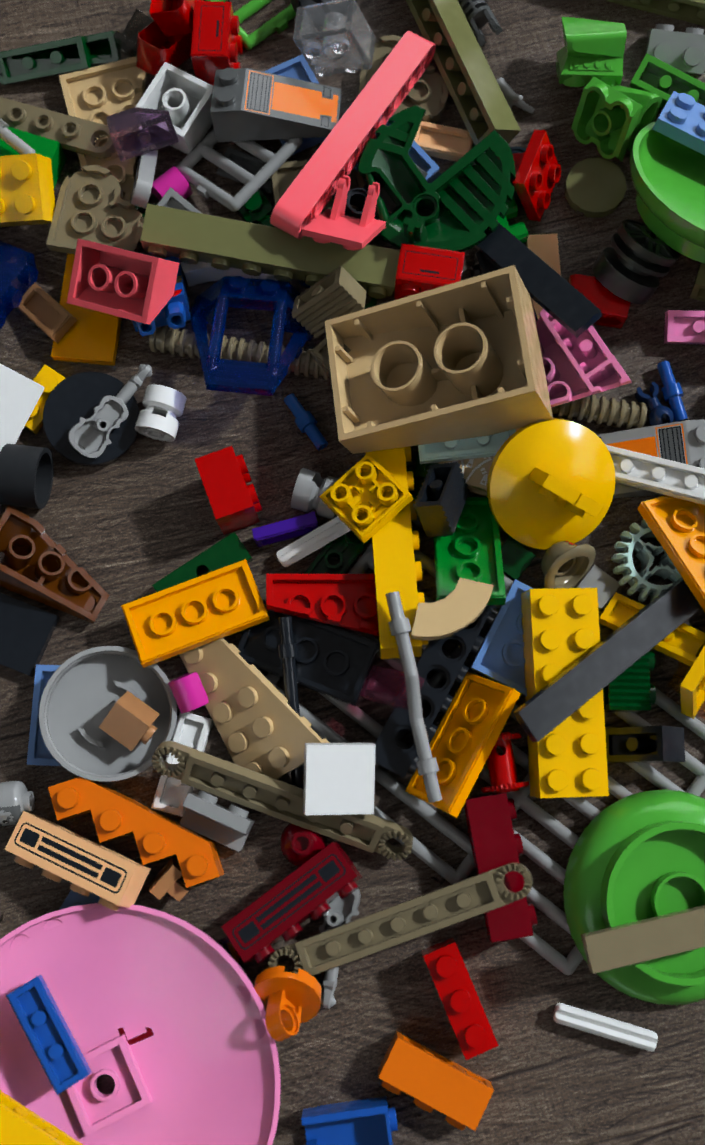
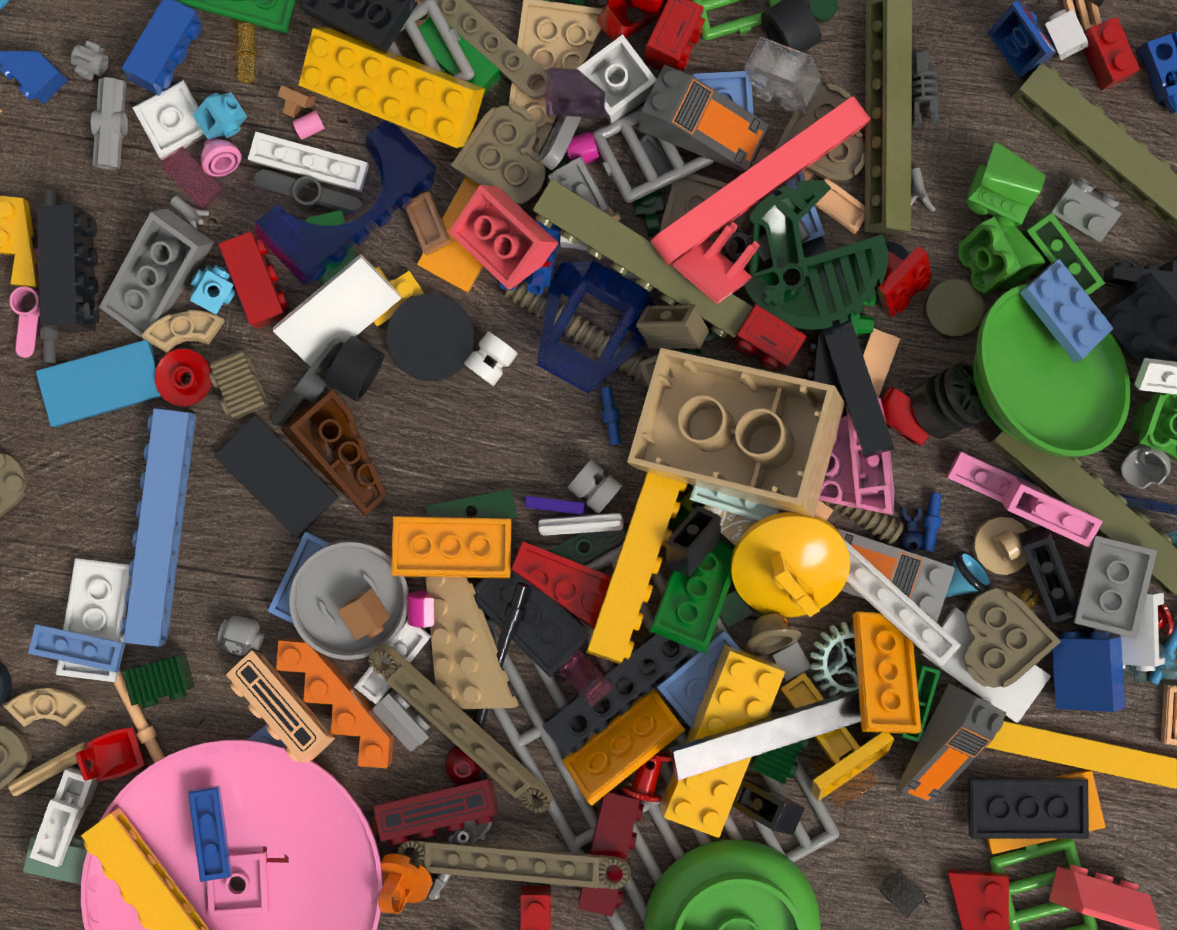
camera: 10 degrees right, 10 degrees up
(92, 434) = (424, 355): light grey piece -> none
(168, 882) = (345, 751): medium nougat tile -> none
(225, 482) = (520, 454): red brick -> none
(339, 778) = (512, 735): white tile -> none
(366, 498) = (630, 515): yellow tile -> none
(400, 628) = (609, 642): light grey bar -> none
(452, 613) = (659, 646): tan tile -> none

